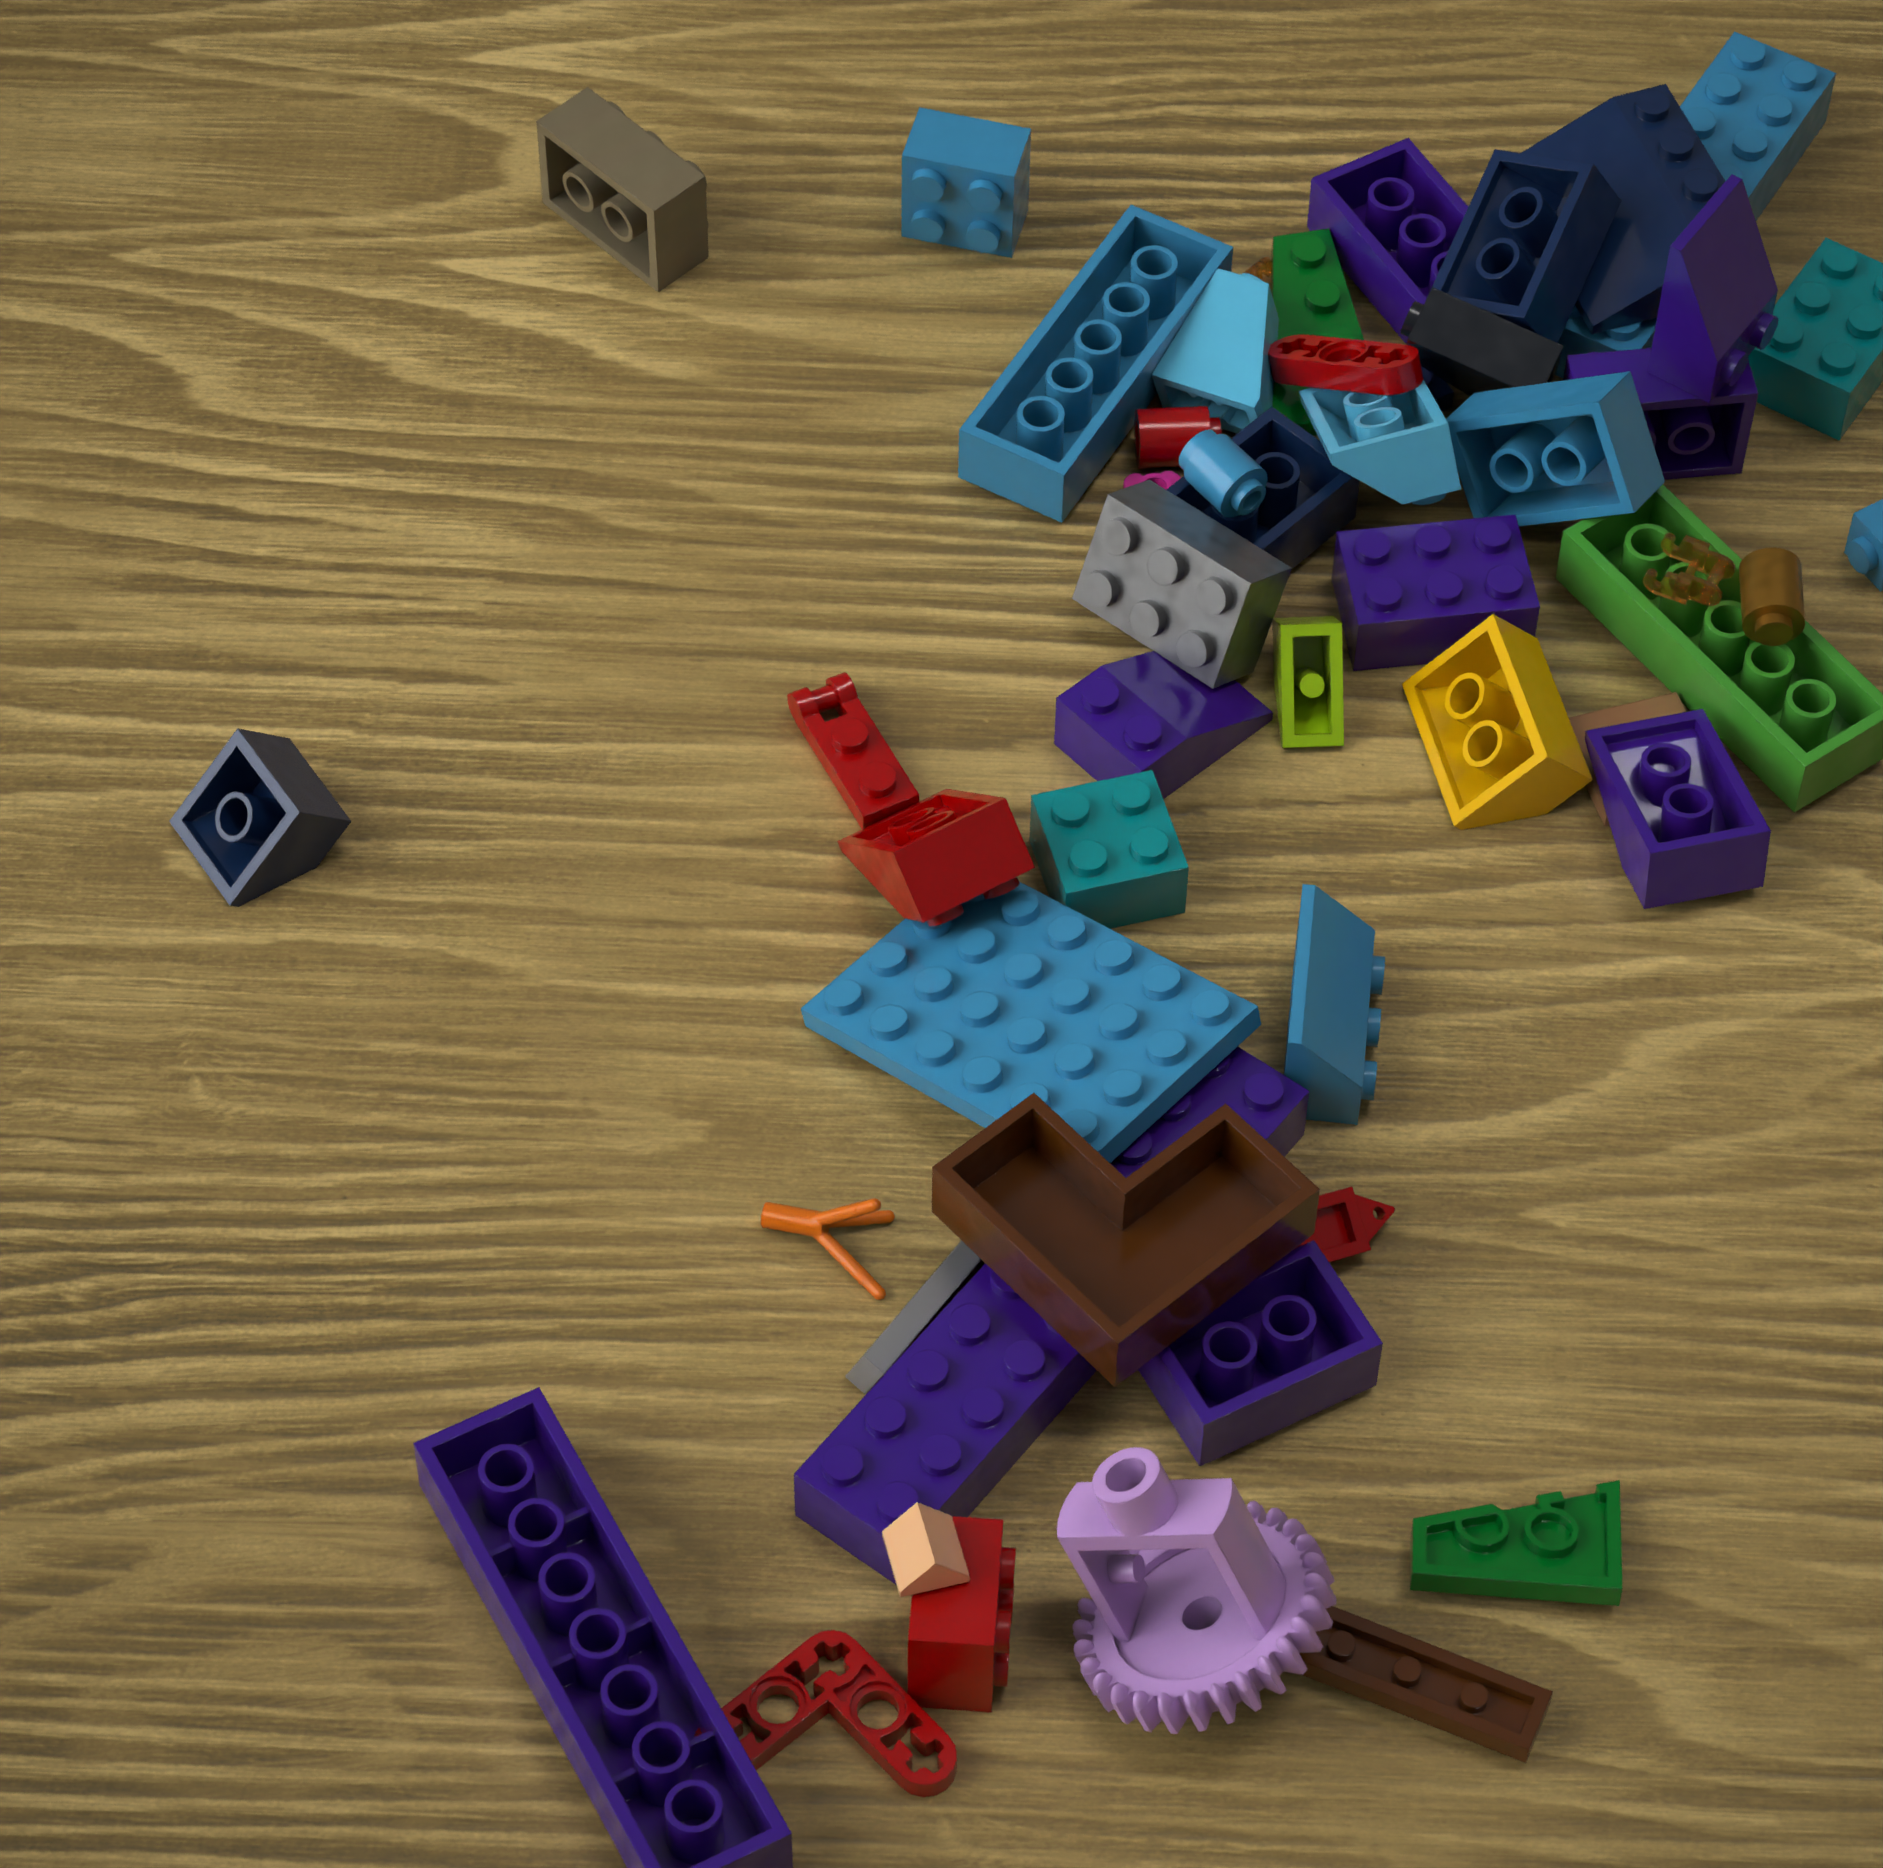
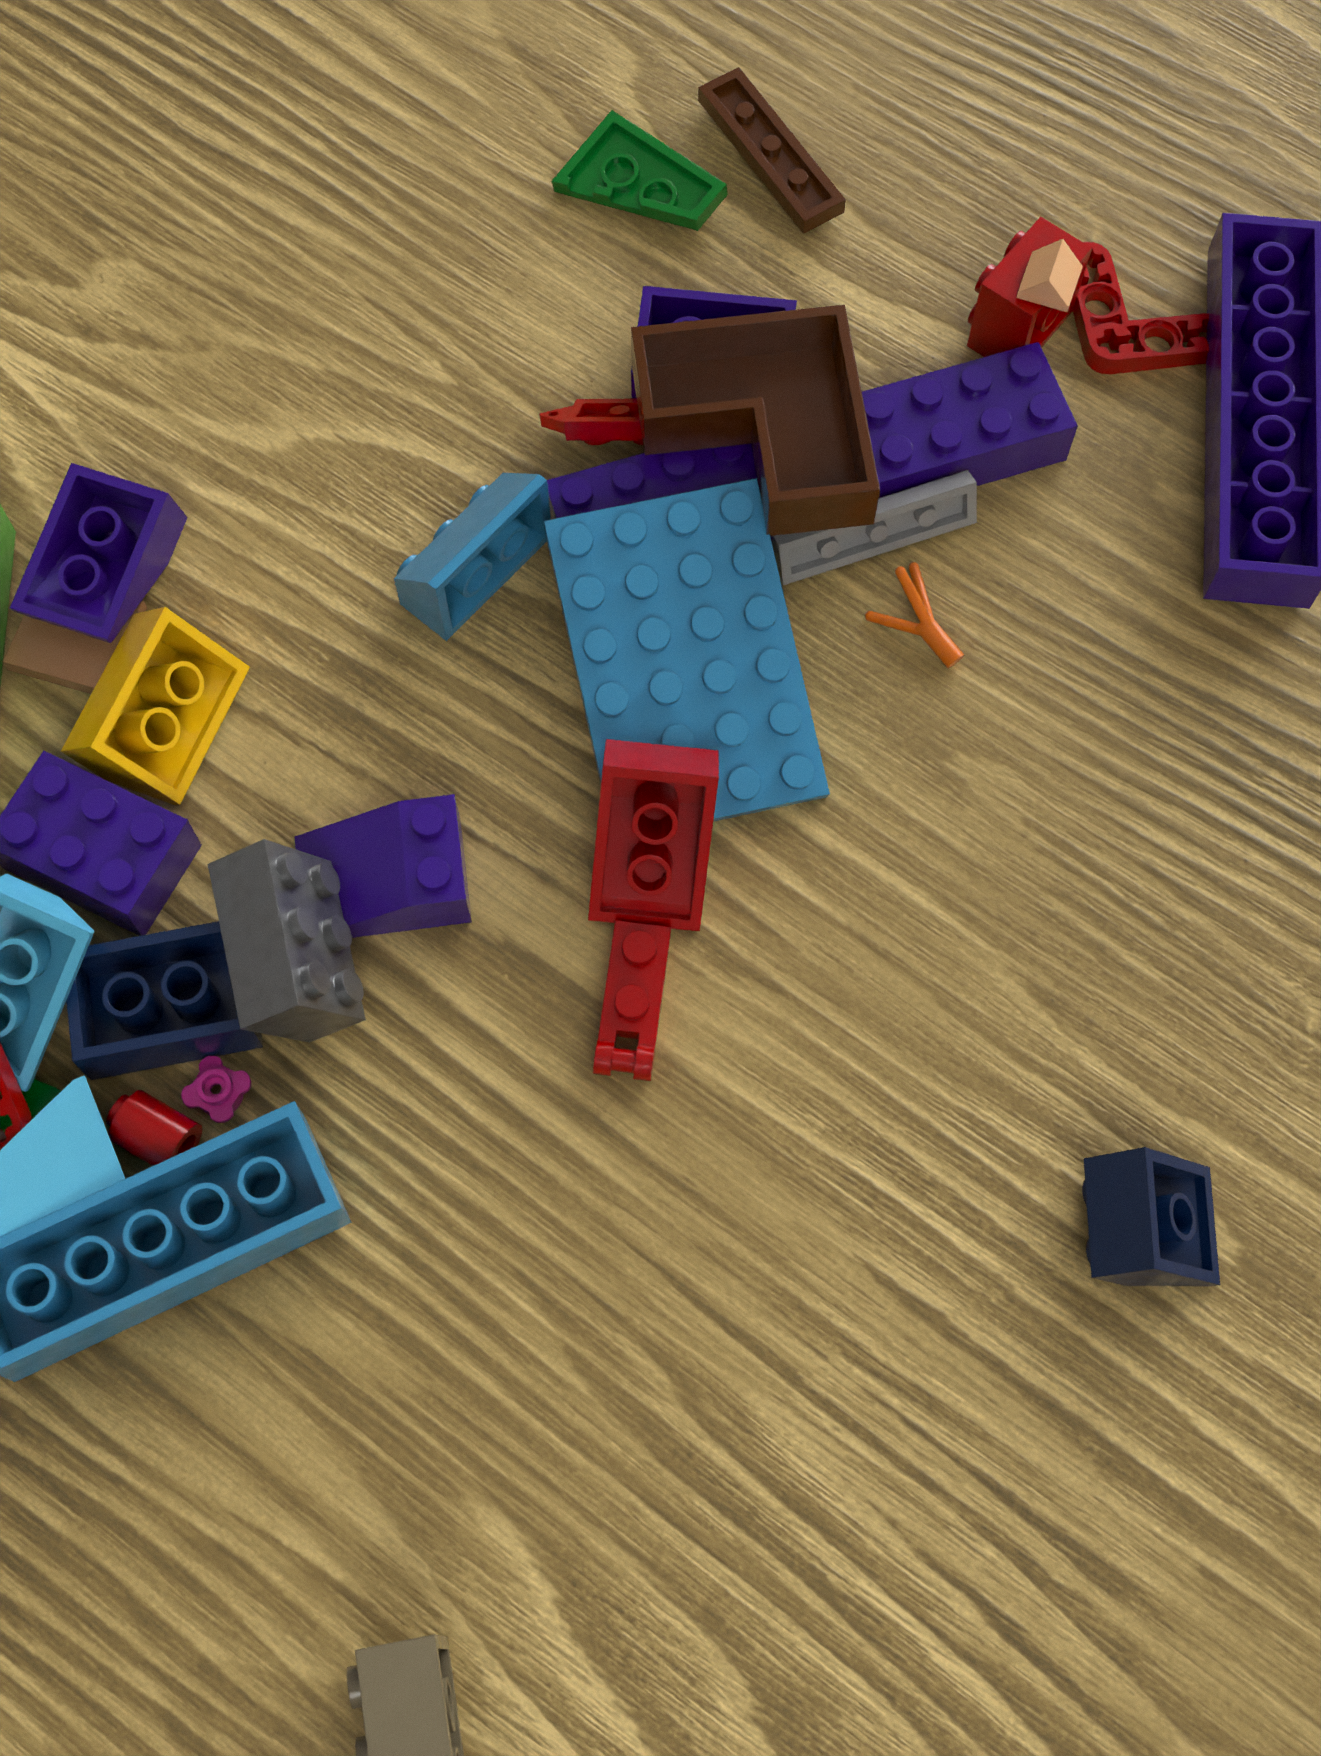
camera: 145 degrees left, 15 degrees up
(965, 182) = (102, 1525): dark azure brick -> none
(1110, 850) = (520, 771): teal brick -> none
(1188, 1593) = (903, 185): lavender piece -> none
(1223, 473) = (180, 989): dark azure brick -> none
(1309, 681) = (246, 818): lime slope -> none

